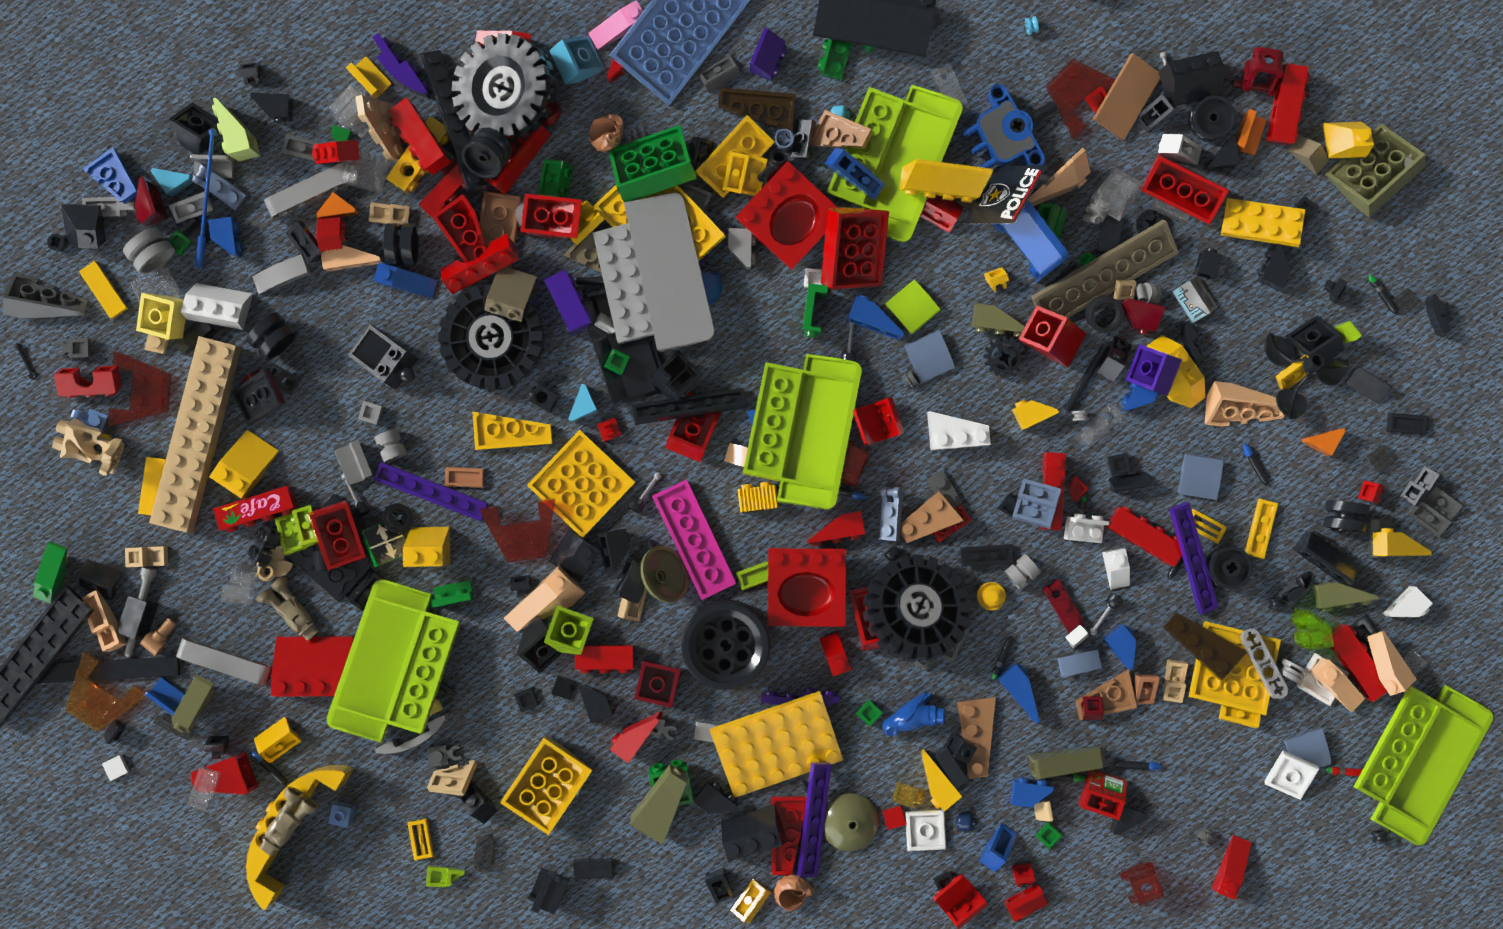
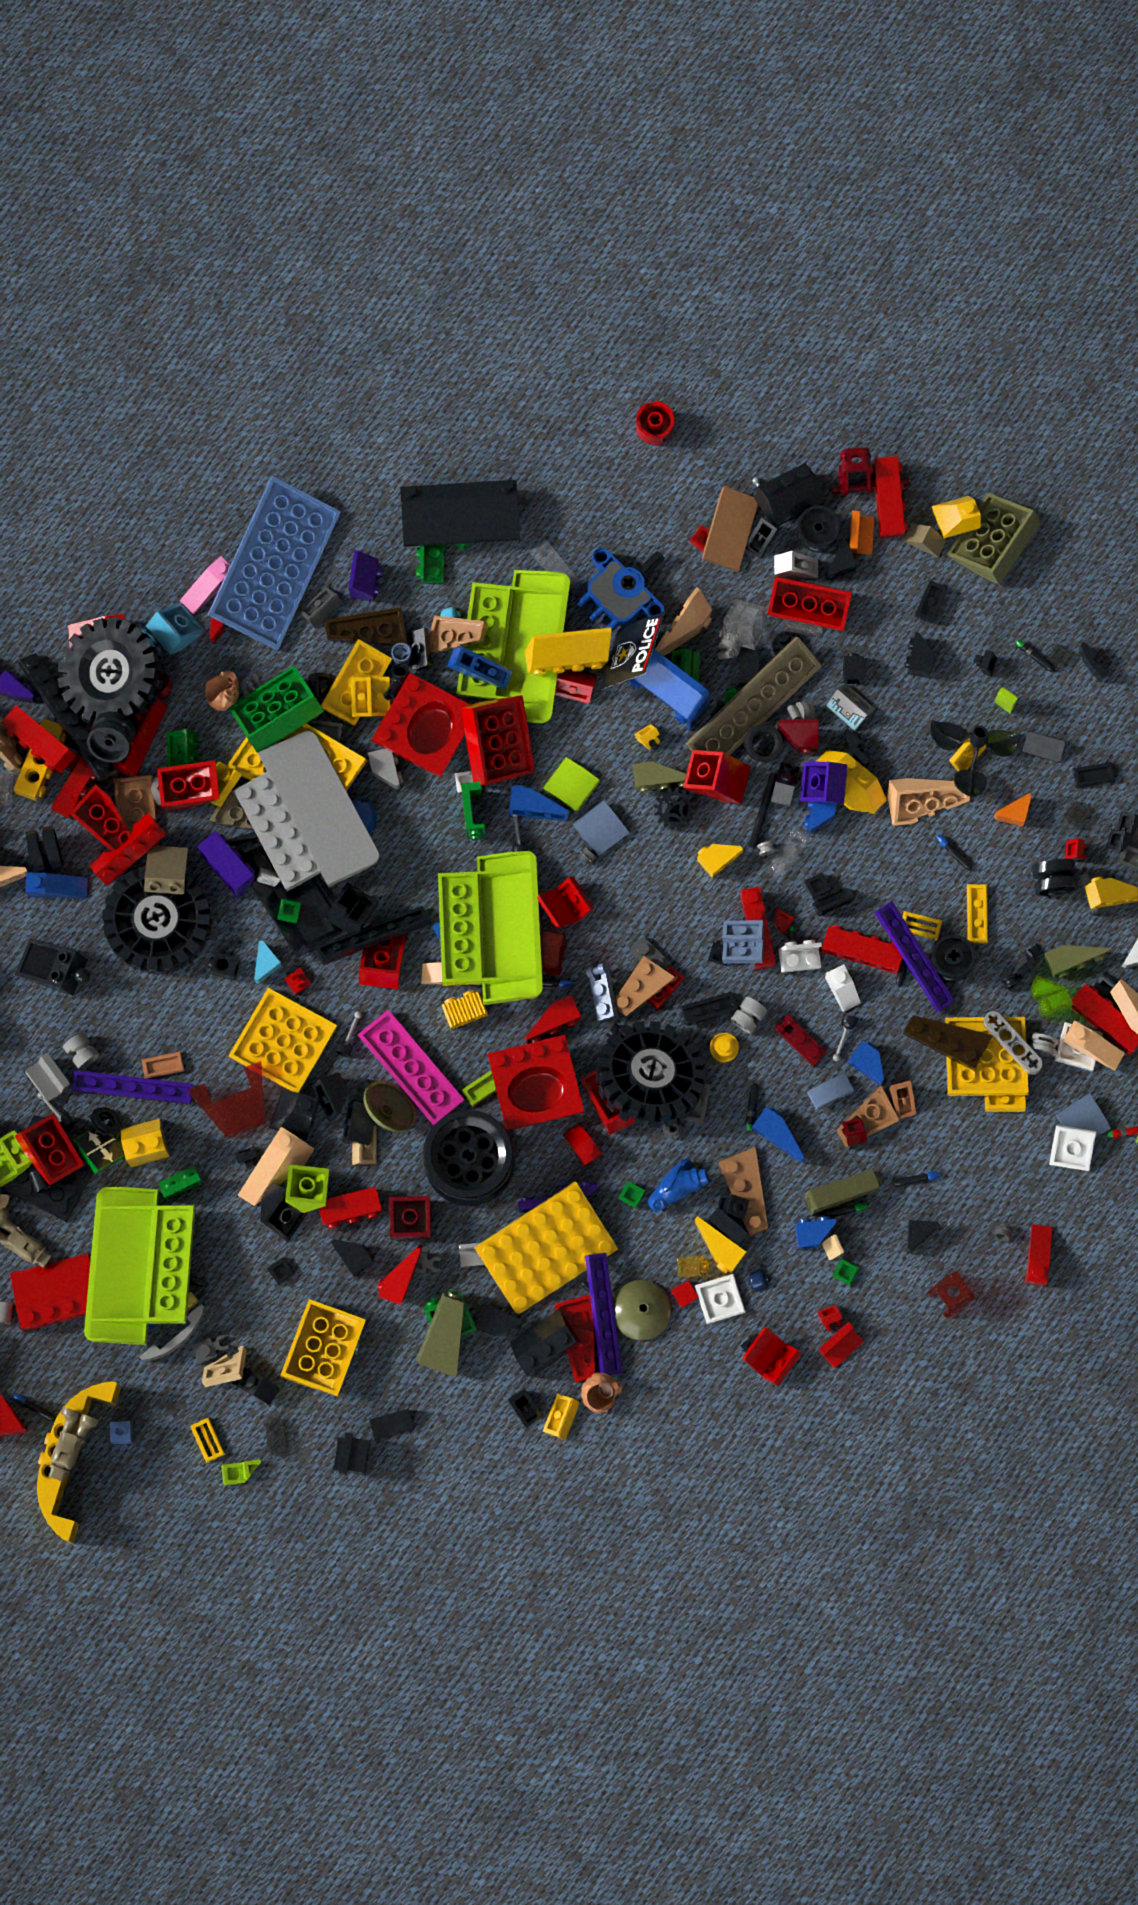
camera: 15 degrees left, 10 degrees down
(276, 740) = (36, 1377): yellow panel -> none
(360, 593) = (86, 1205): black slope -> none
(370, 412) = (52, 1024): light grey plate -> none
(388, 213) = (19, 825): tan slope -> none
(505, 432) = (196, 1009): yellow wing -> none
(563, 687) = (315, 1249): black slope -> none
(953, 432) = (646, 895): white wedge -> none
(998, 848) = (797, 1296): blue slope -> none
(1031, 25) = (618, 484): medium azure bush -> none
(1071, 88) = (673, 534): clear red wing -> none
(1077, 636) = (821, 1065): white slope -> none
(1103, 794) = (888, 1214): red slope -> none
(1124, 289) = (777, 713): tan tile -> none
(1174, 681) = (931, 1085): tan slope -> none
(1200, 476) = (902, 877): sand blue slope -> none
(1263, 222) = (895, 615): yellow plate -> none
(1317, 337) = (981, 712): black slope -> none
(1327, 557) = (1048, 923): black slope -> none

